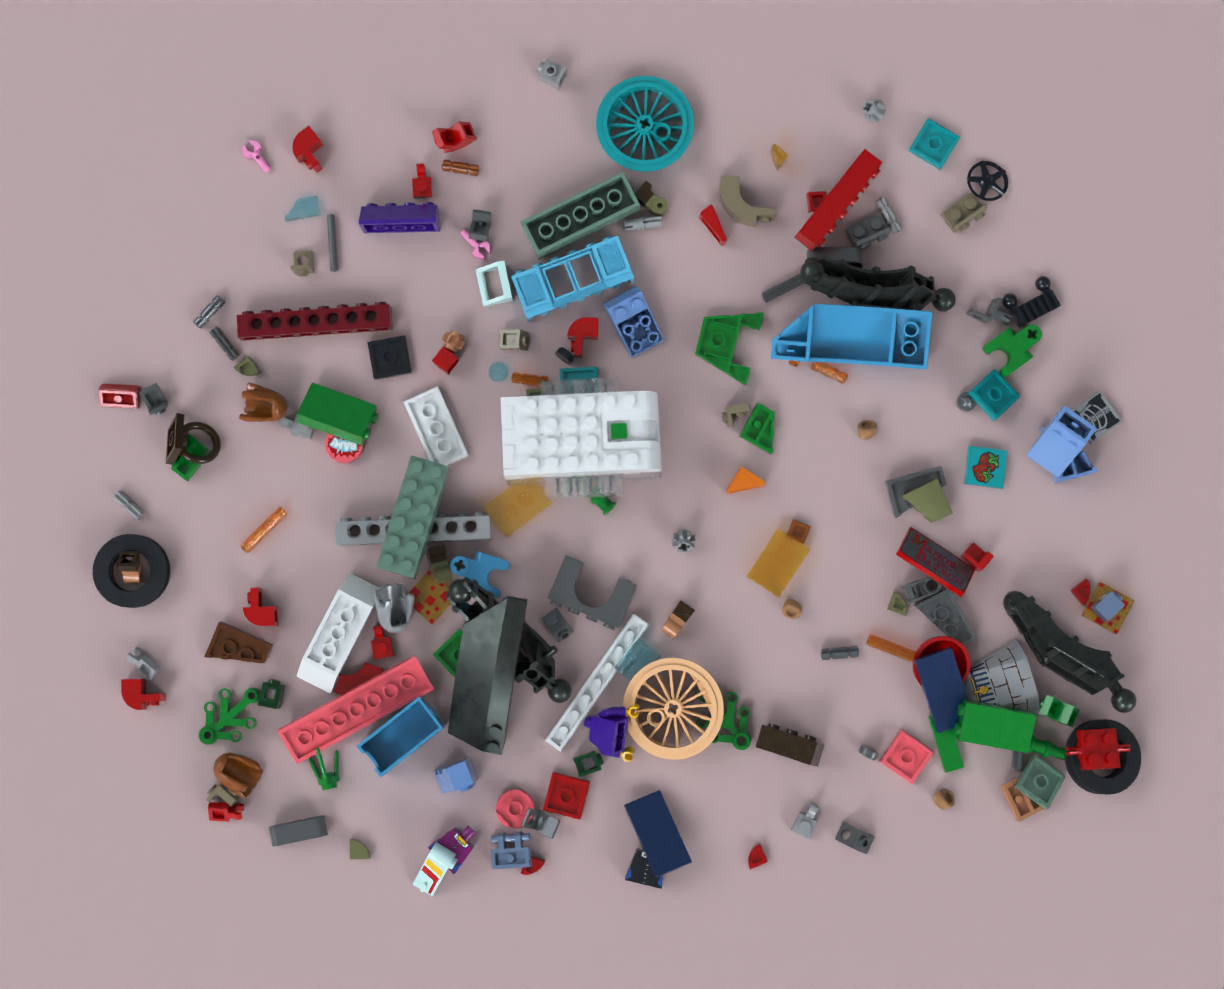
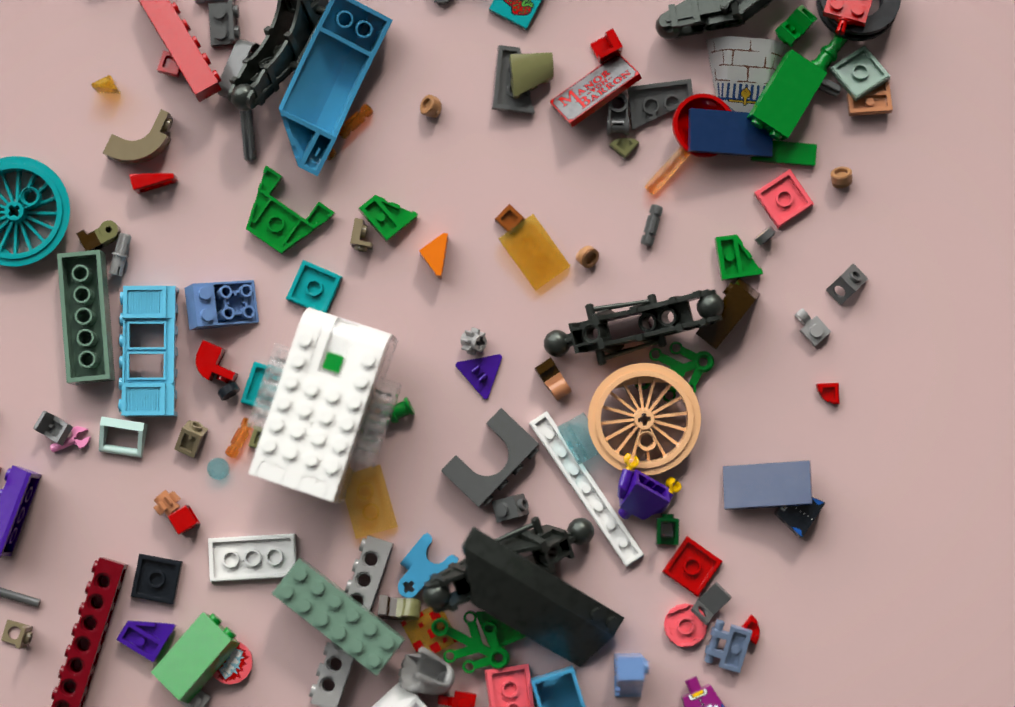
camera: 65 degrees left, 0 degrees up
(339, 367) = (146, 637): none -> dark purple wing
(433, 637) = (473, 644): none -> green plant
(660, 557) = (481, 372): none -> dark purple piece
(677, 392) = (314, 287): none -> teal tile
(788, 727) = (581, 336): none -> pearl dark grey piece
(838, 734) = (734, 259): none -> green wing

